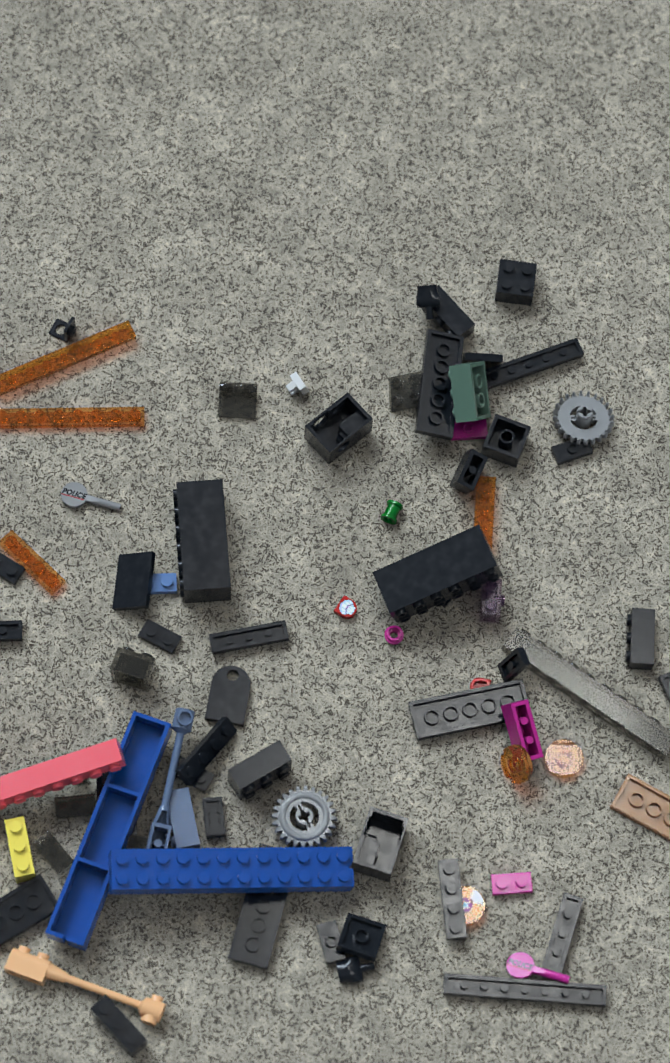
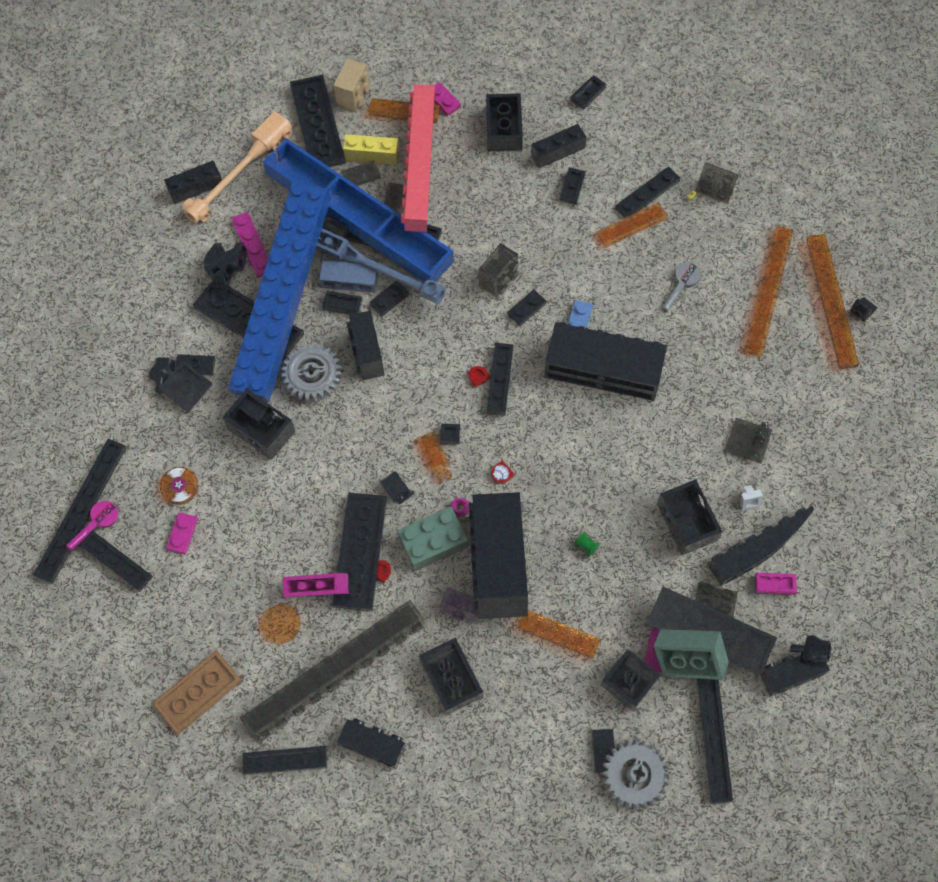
camera: 115 degrees right, 0 degrees up
(133, 581) = (585, 297): black tile -> none
(172, 937) = (250, 237): none -> dark pink plate
(206, 751) = (402, 309): black plate -> none
(212, 949) = (222, 264): none -> black piece
(228, 696) = (449, 346): black tile -> none
(251, 660) = (478, 376): none -> red tile
(323, 665) = (450, 434): none -> black plate
(343, 366) = (757, 548): none -> black slope
(348, 675) = (434, 455): none -> clear orange plate
(371, 347) = (775, 583): none -> dark pink plate
(397, 696) = (396, 488): none -> black bracket
(436, 646) = (433, 538): none -> sand green brick
(452, 899) = (186, 473): plate -> none
(468, 471) = (606, 630): black brick -> none
(483, 357) = (732, 687): black tile -> none
(513, 664) = (386, 603): black plate -> none
(515, 282) = (816, 758): black brick -> none
(516, 764) = (287, 570): clear orange tile -> none
(558, 589) = (451, 676): none -> black brick

